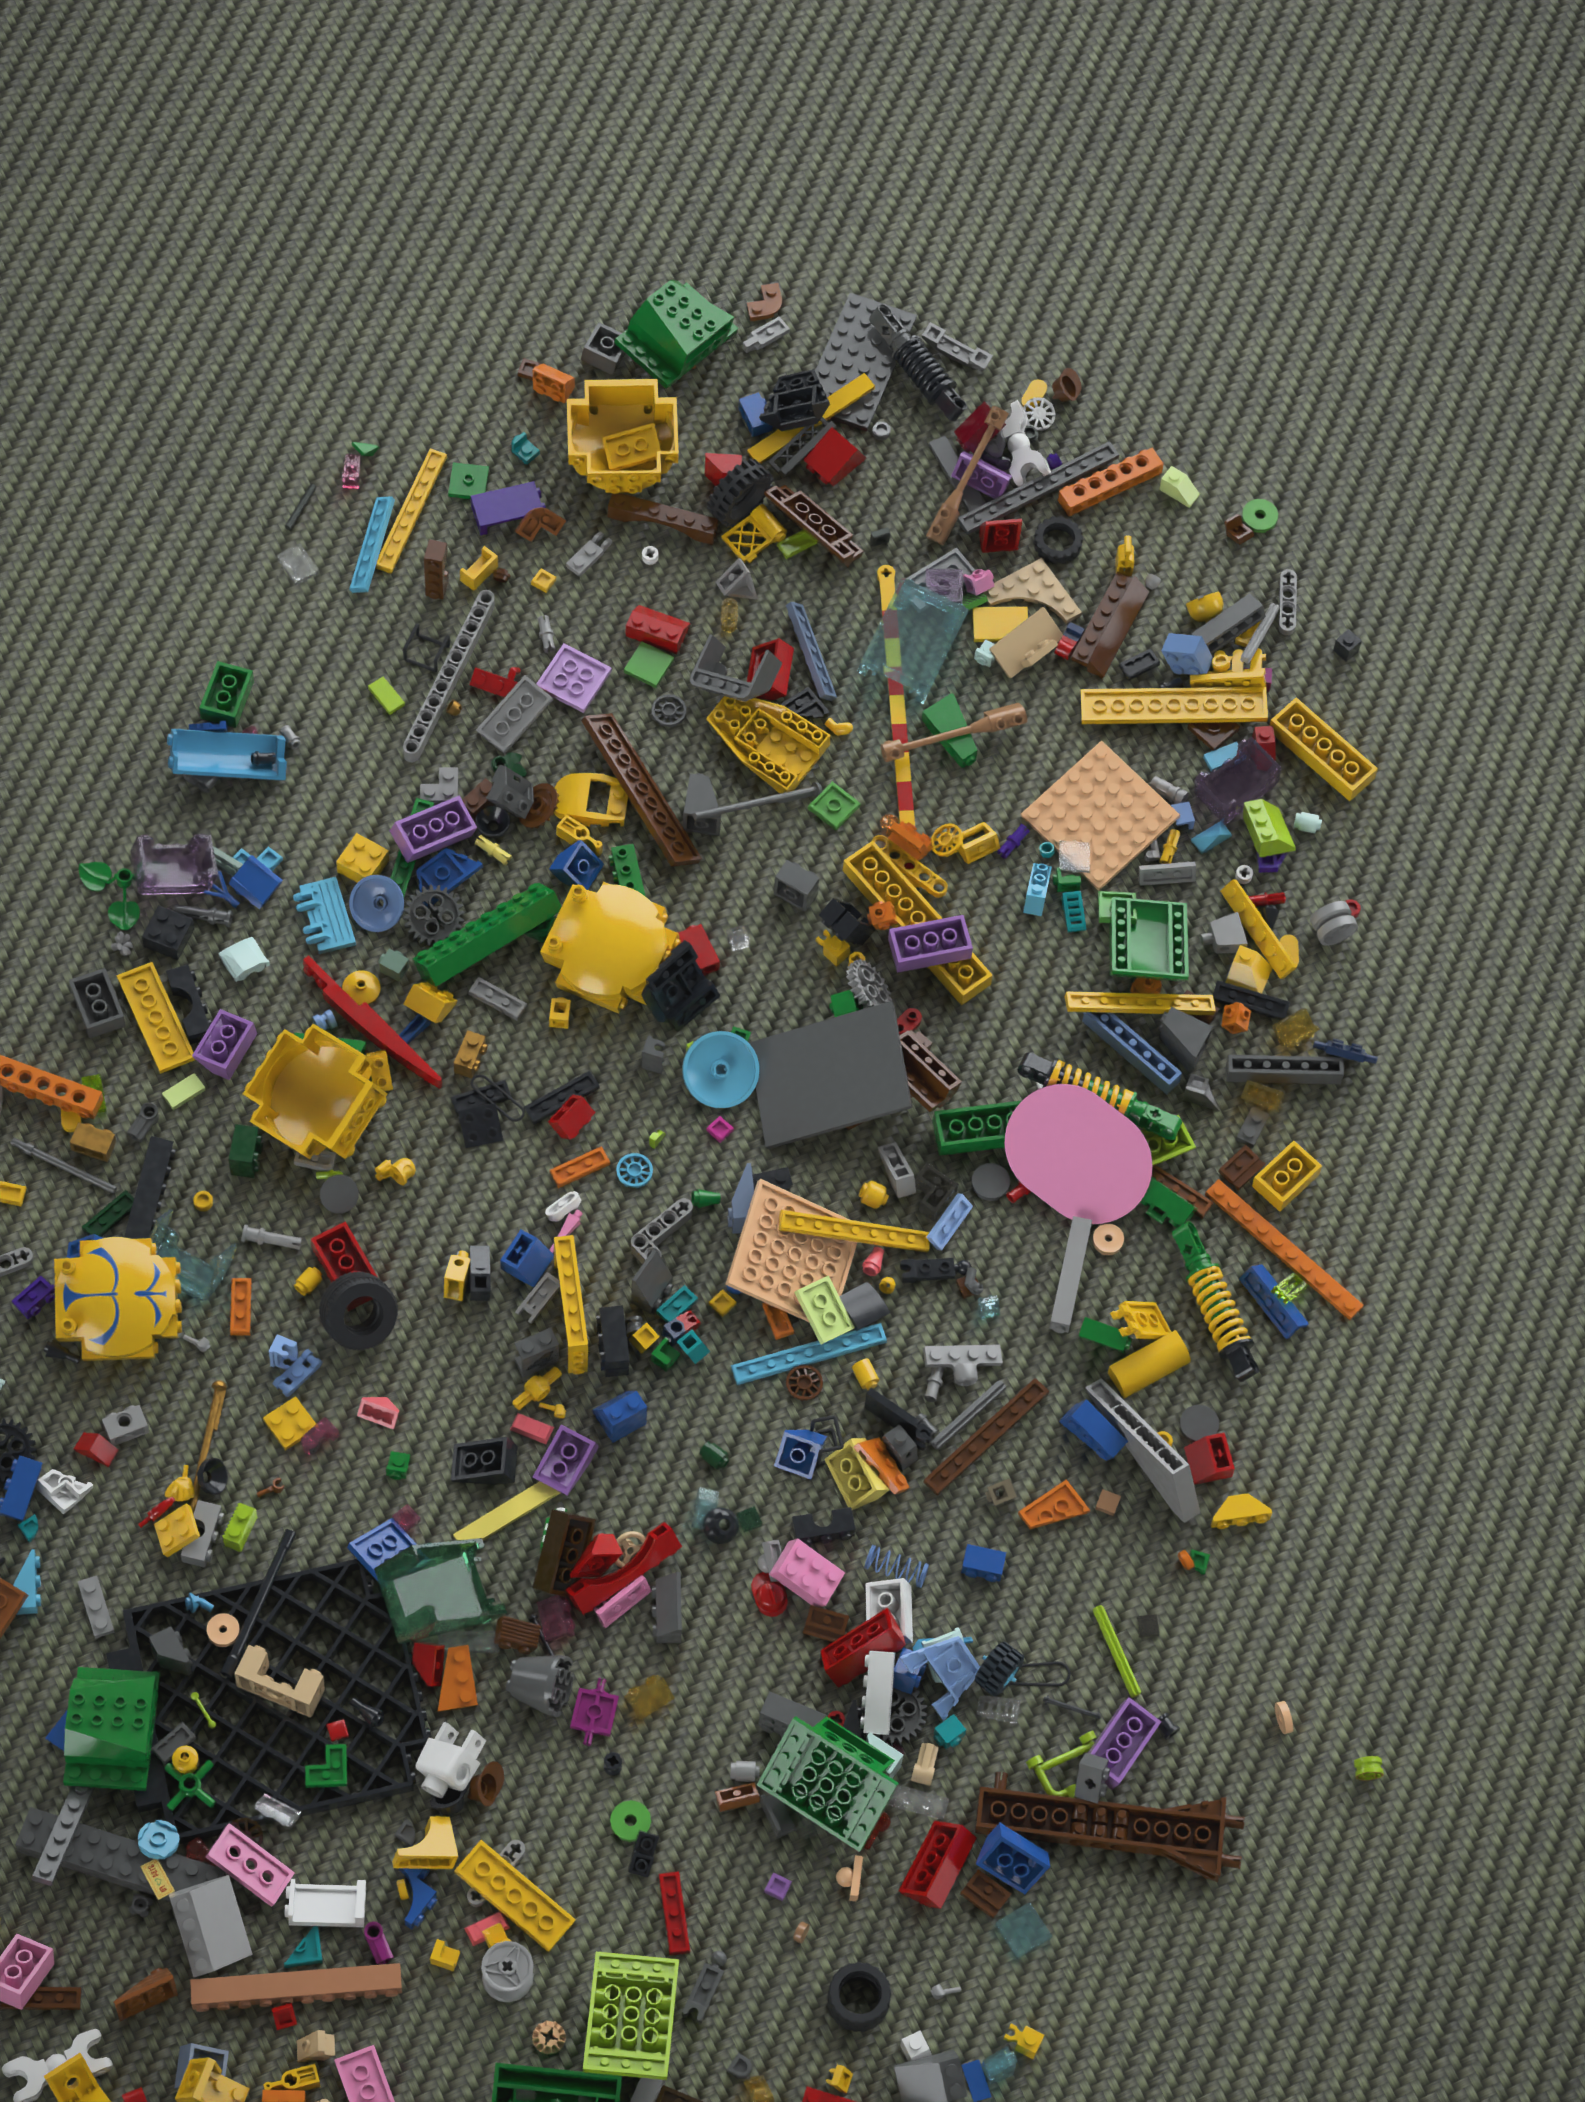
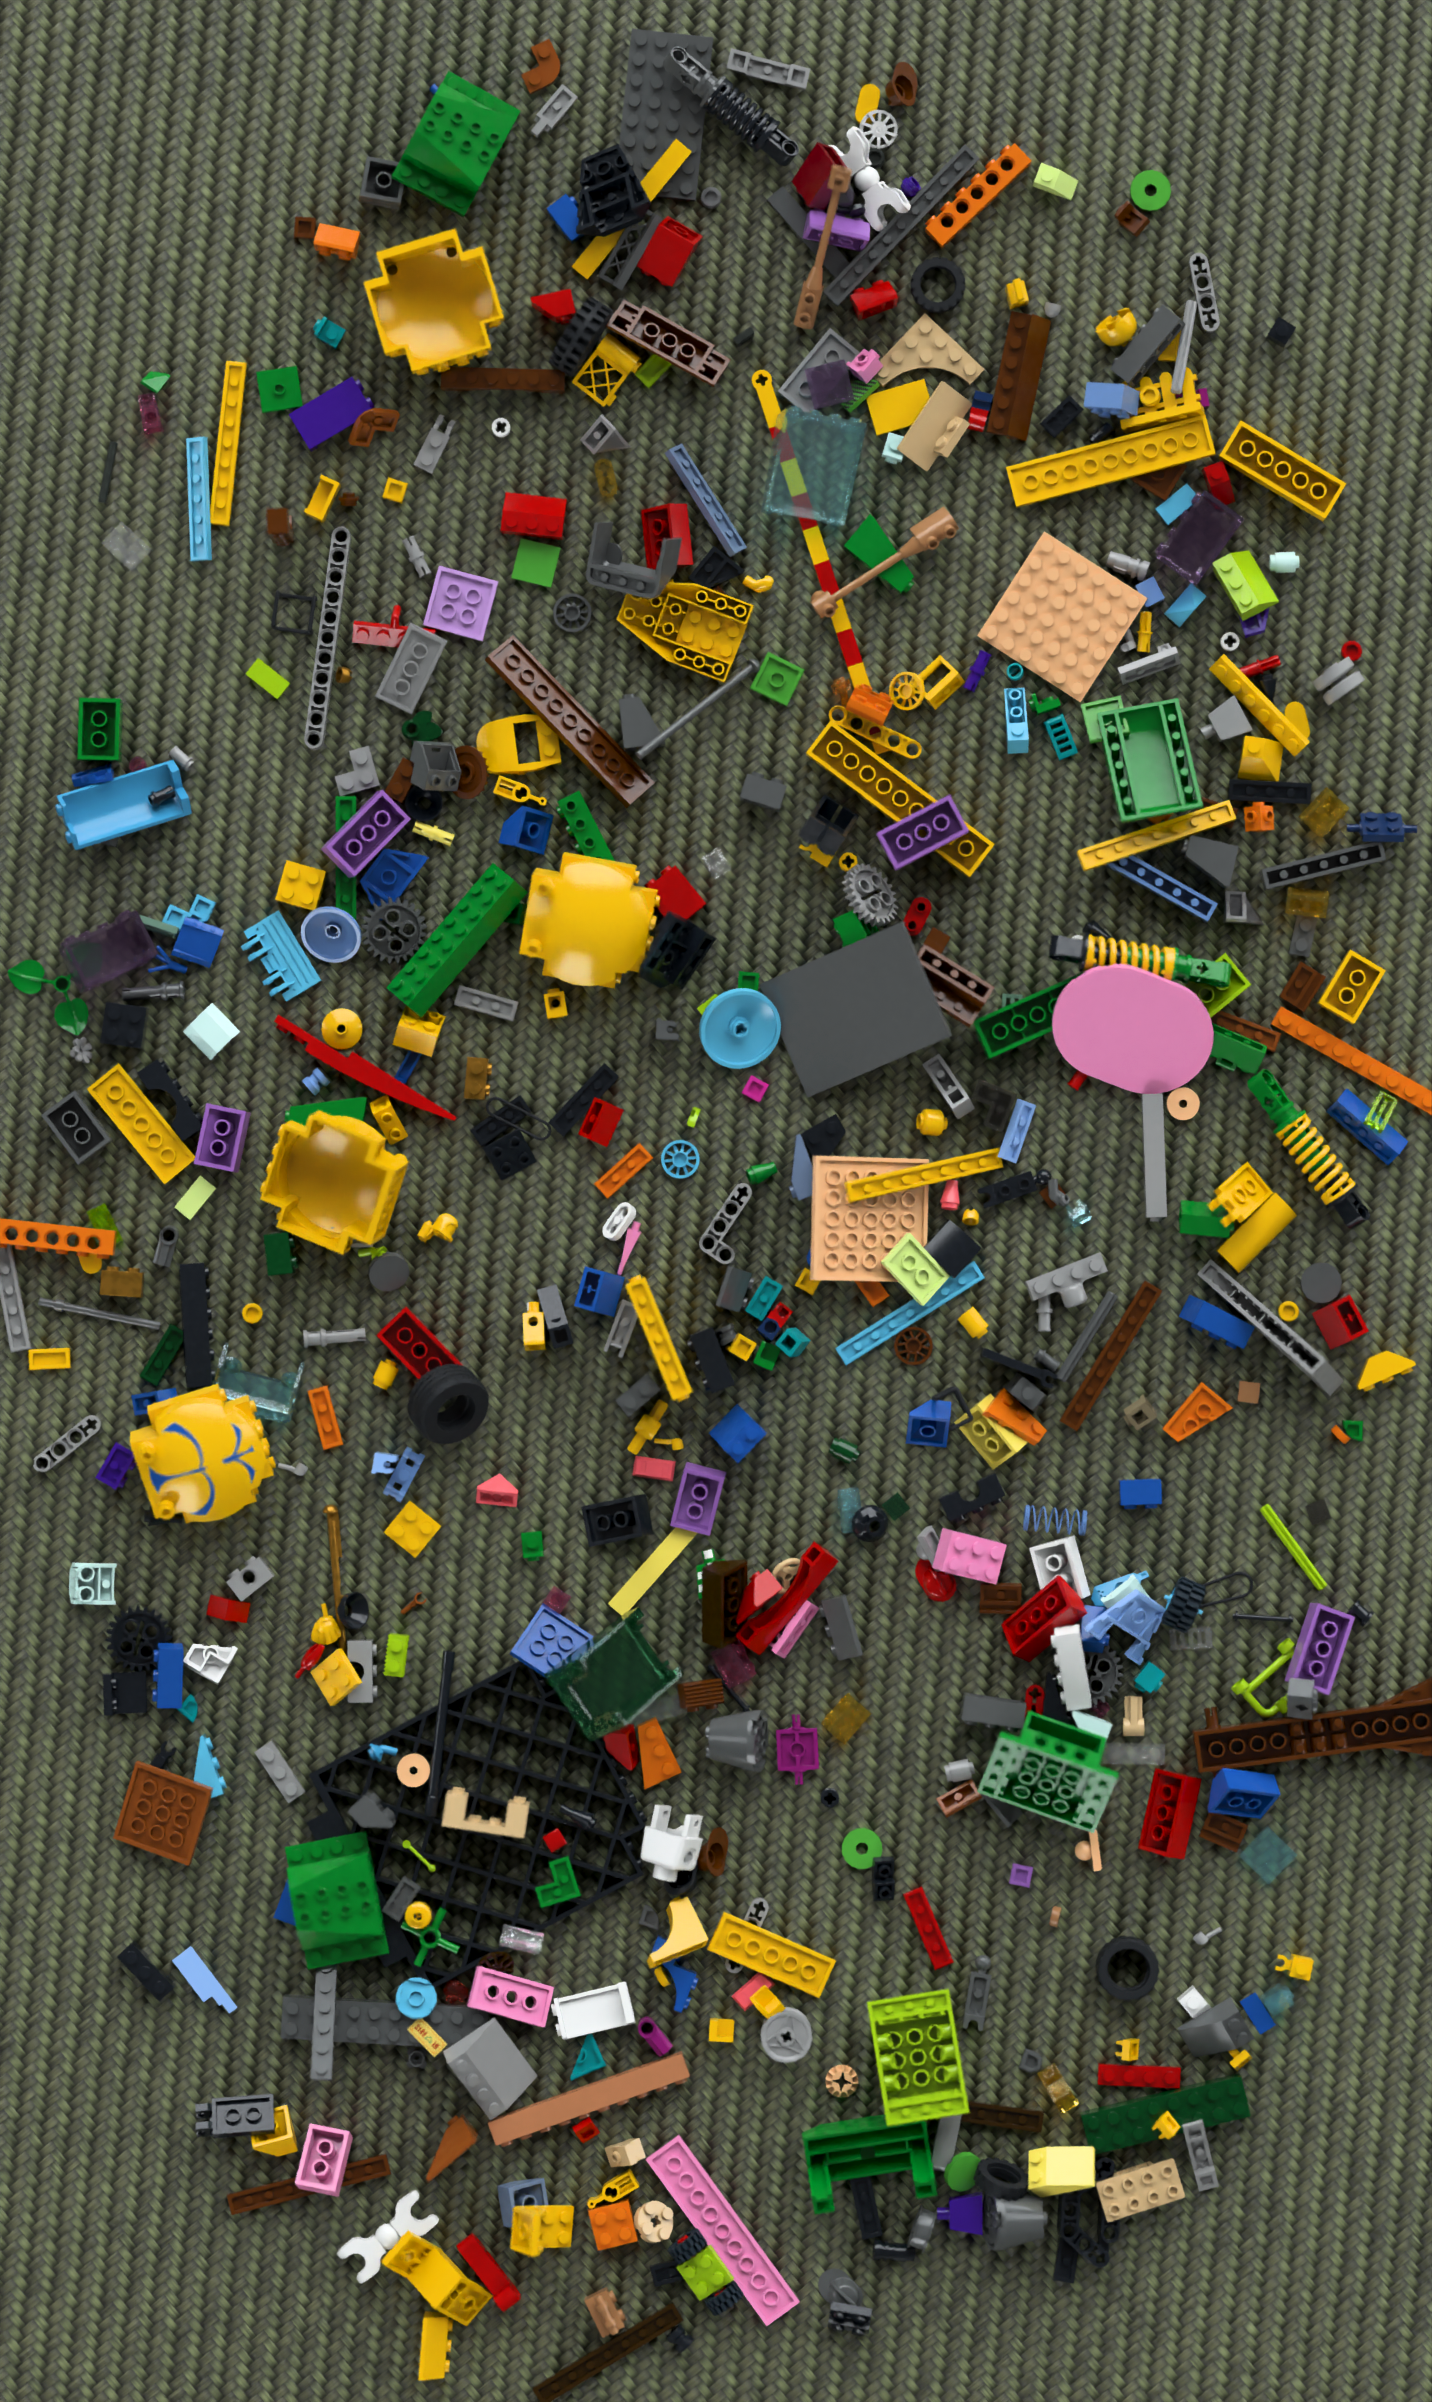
camera: 10 degrees left, 25 degrees up
(318, 1435) = (440, 1542): clear pink leg -> none
(393, 964) = (368, 996): sand green brick -> none
(631, 447) = (447, 307): yellow plate -> none
(882, 915) = (869, 807): orange brick -> none
(990, 1181) = (1047, 1072): dark grey tile -> none
(1074, 856) = (1047, 676): clear piece -> none

